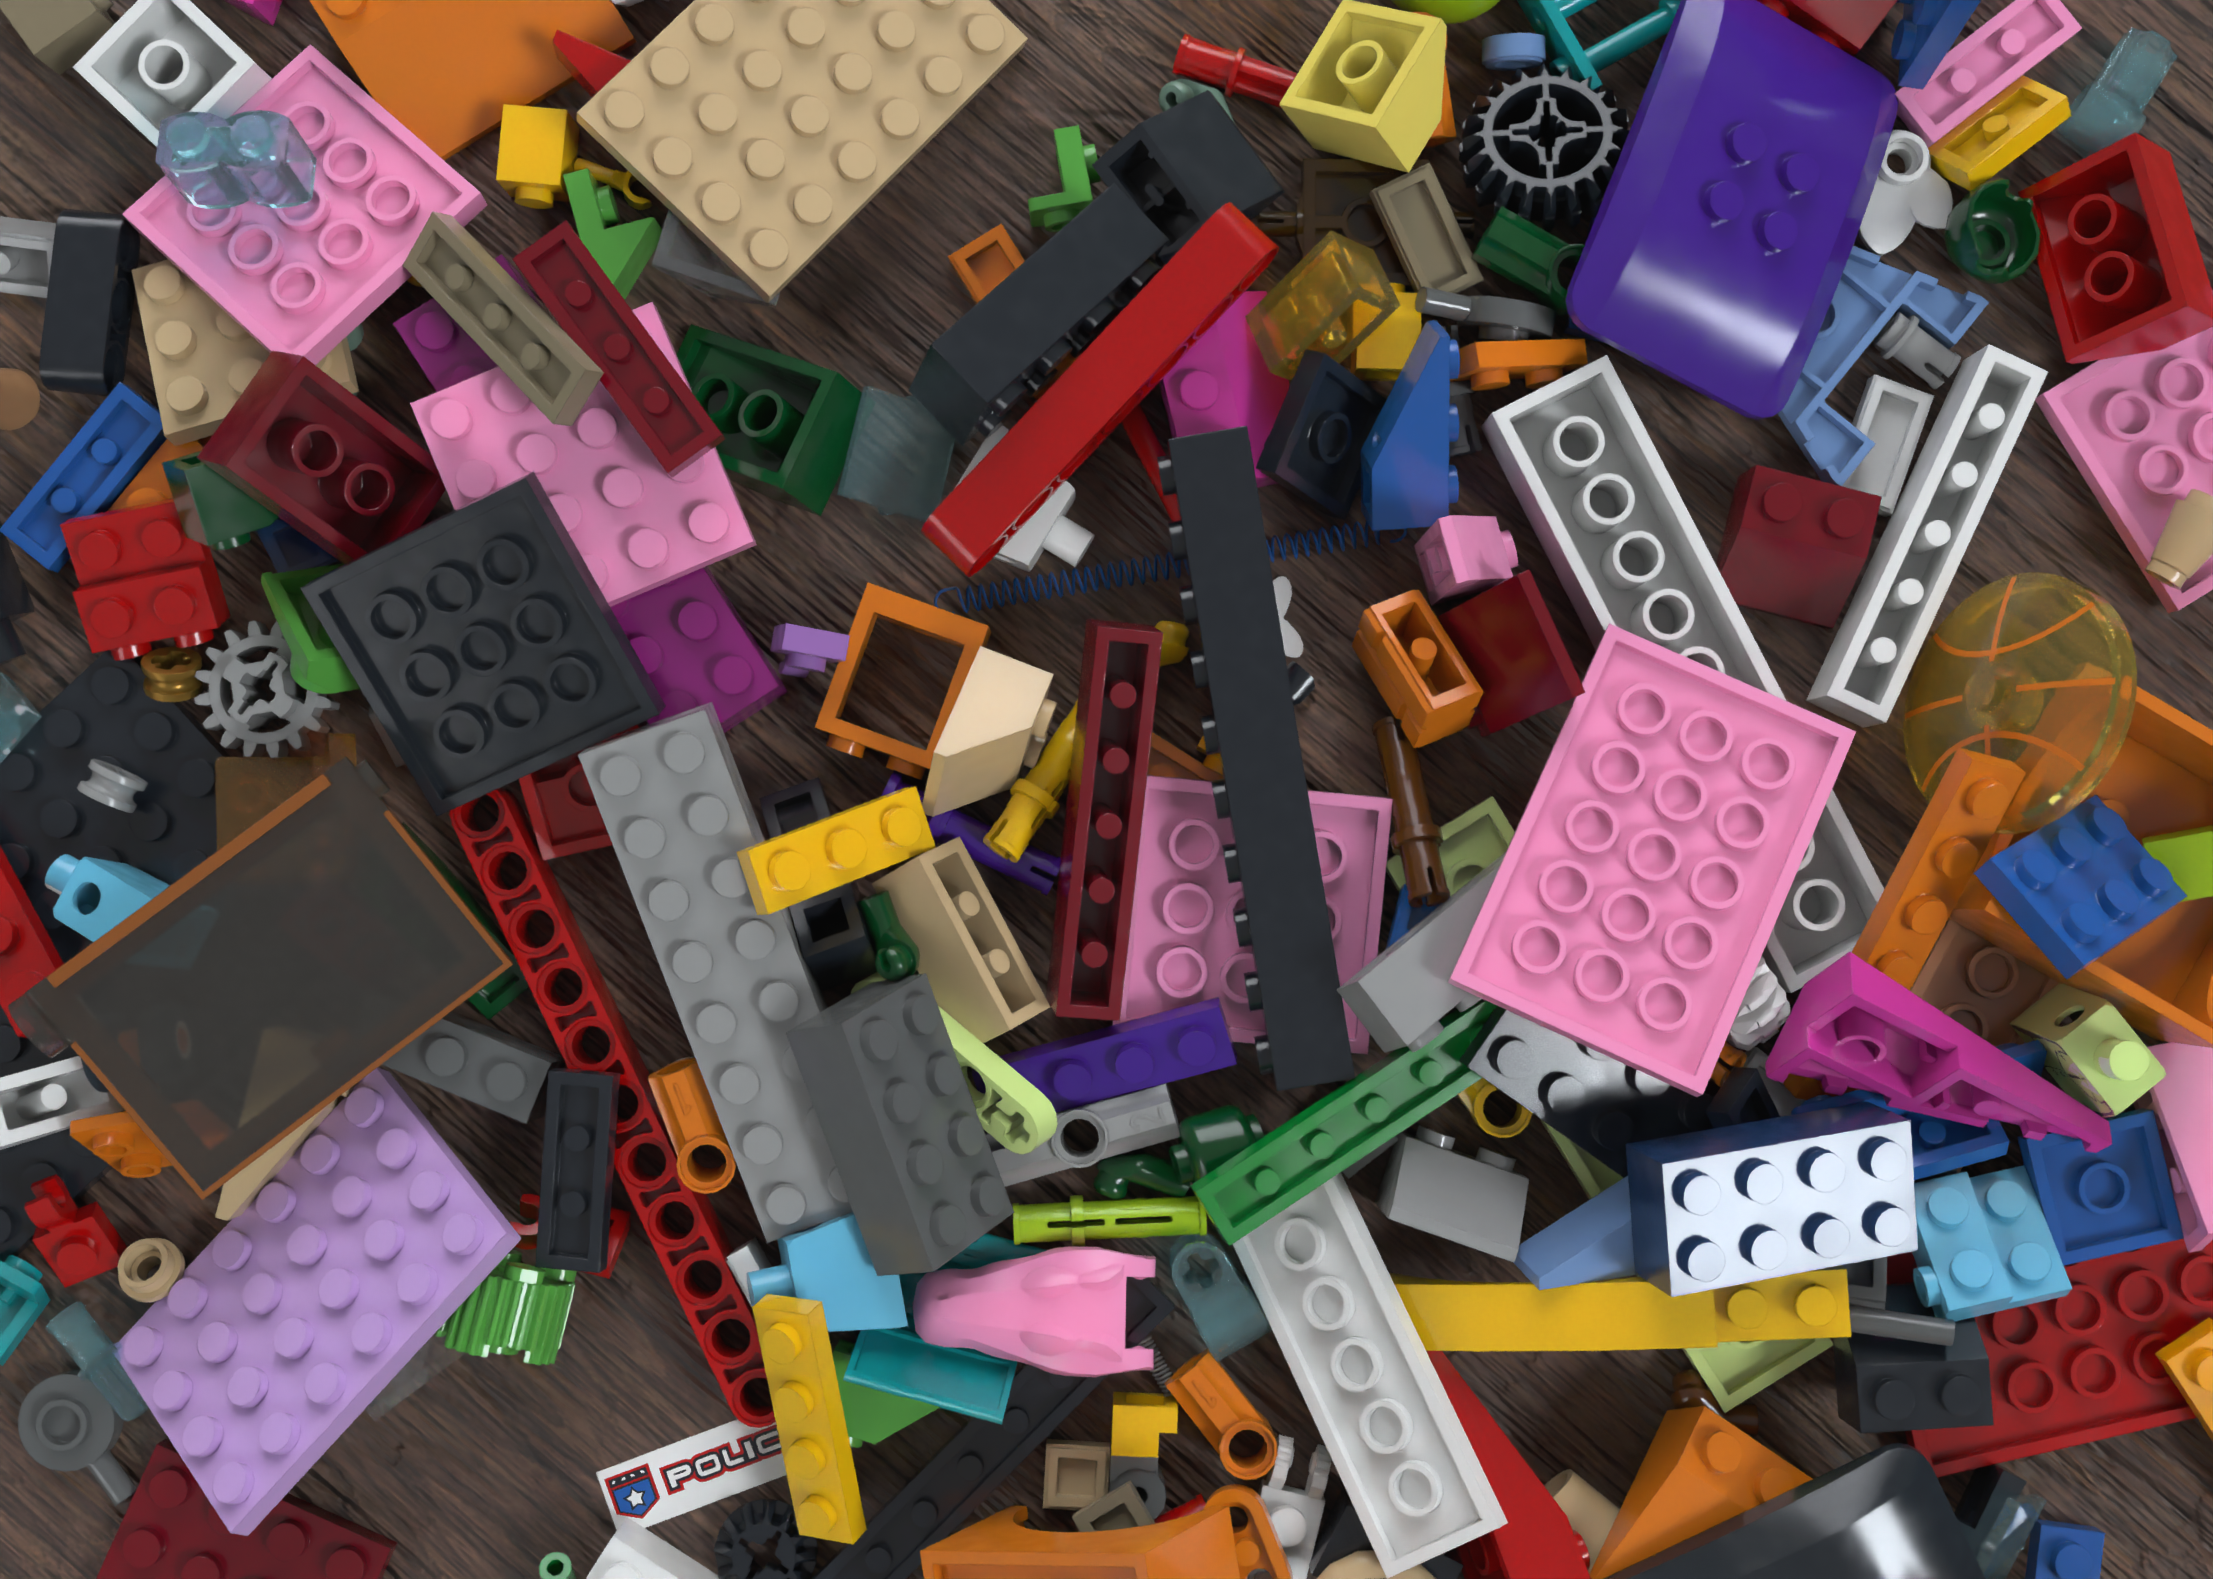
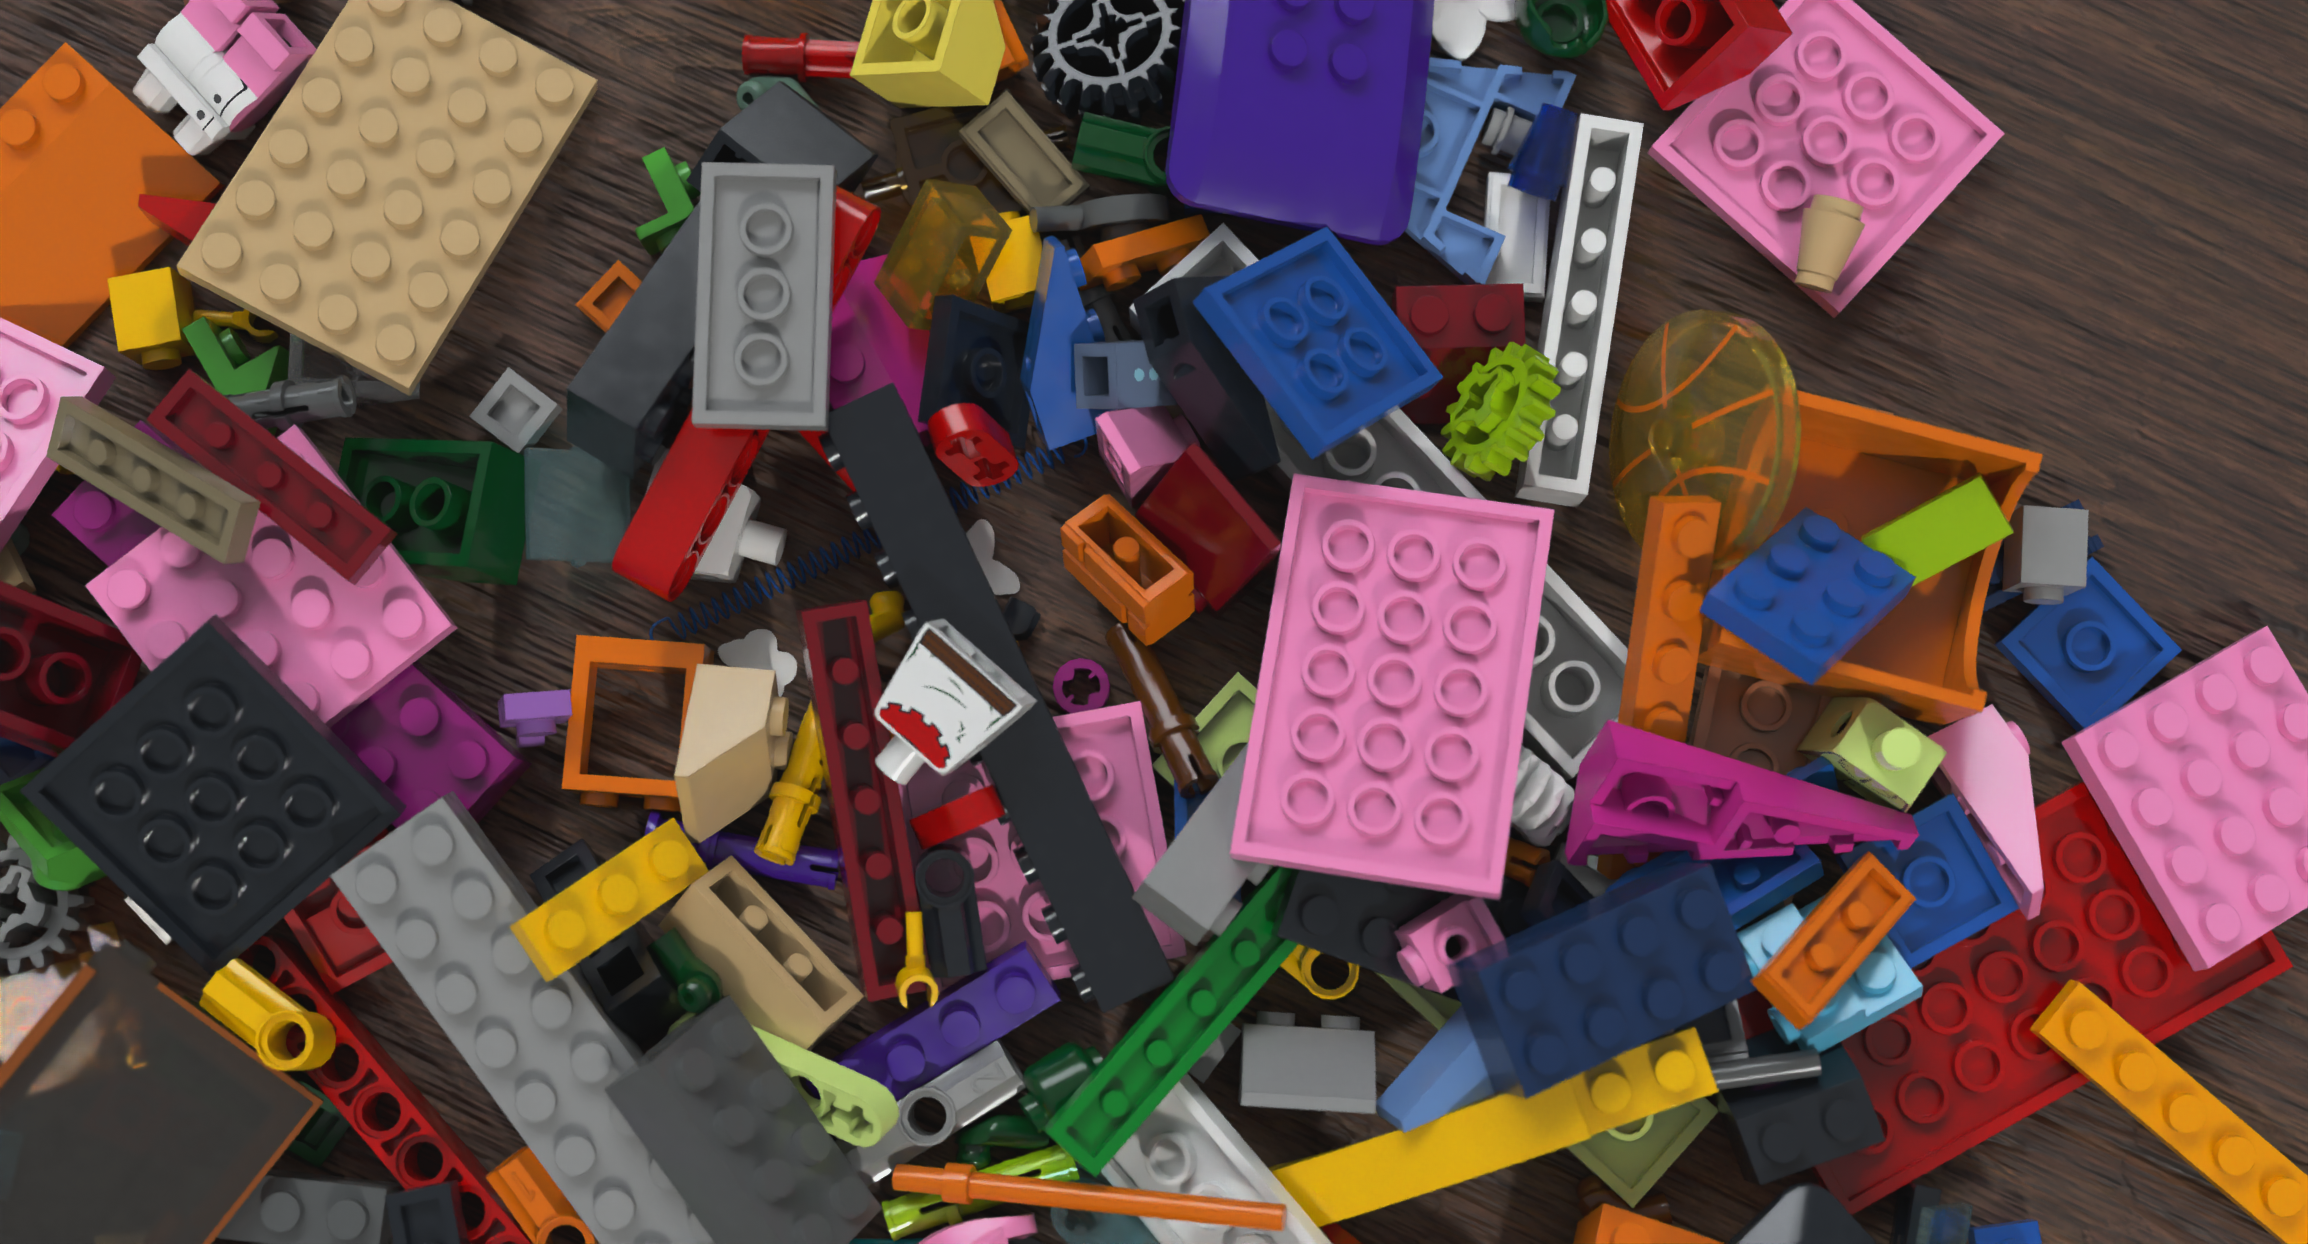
camera: 15 degrees left, 5 degrees down
(476, 867) = (265, 1015): none -> yellow piece
(654, 281) = (300, 403): none -> dark grey pin
(863, 346) = (516, 412): none -> light grey plate
(1034, 647) = (760, 651): none -> white sticker
(1096, 1212) = (963, 1184): none -> orange bar
(1110, 996) = (915, 962): none -> yellow hand
(1146, 305) = (764, 296): none -> light grey plate
(1155, 955) = (950, 917): none -> black piece
(1190, 865) = (957, 817): none -> red beam
(1212, 756) = (945, 704): none -> white torso
(1301, 505) = (972, 444): none -> red beam
(1325, 752) = (1066, 675): none -> magenta bush
(1471, 479) = (1117, 377): none -> sand blue brick
(1557, 498) = (1206, 377): none -> black slope
(1613, 1107) = (1425, 938): none -> bright pink brick
(1672, 500) = (1318, 341): none -> blue plate
(1826, 618) = (1500, 411): none -> lime gear
(1938, 373) = (1544, 154): none -> clear blue cone
(2001, 1223) = (1833, 940): none -> orange tile

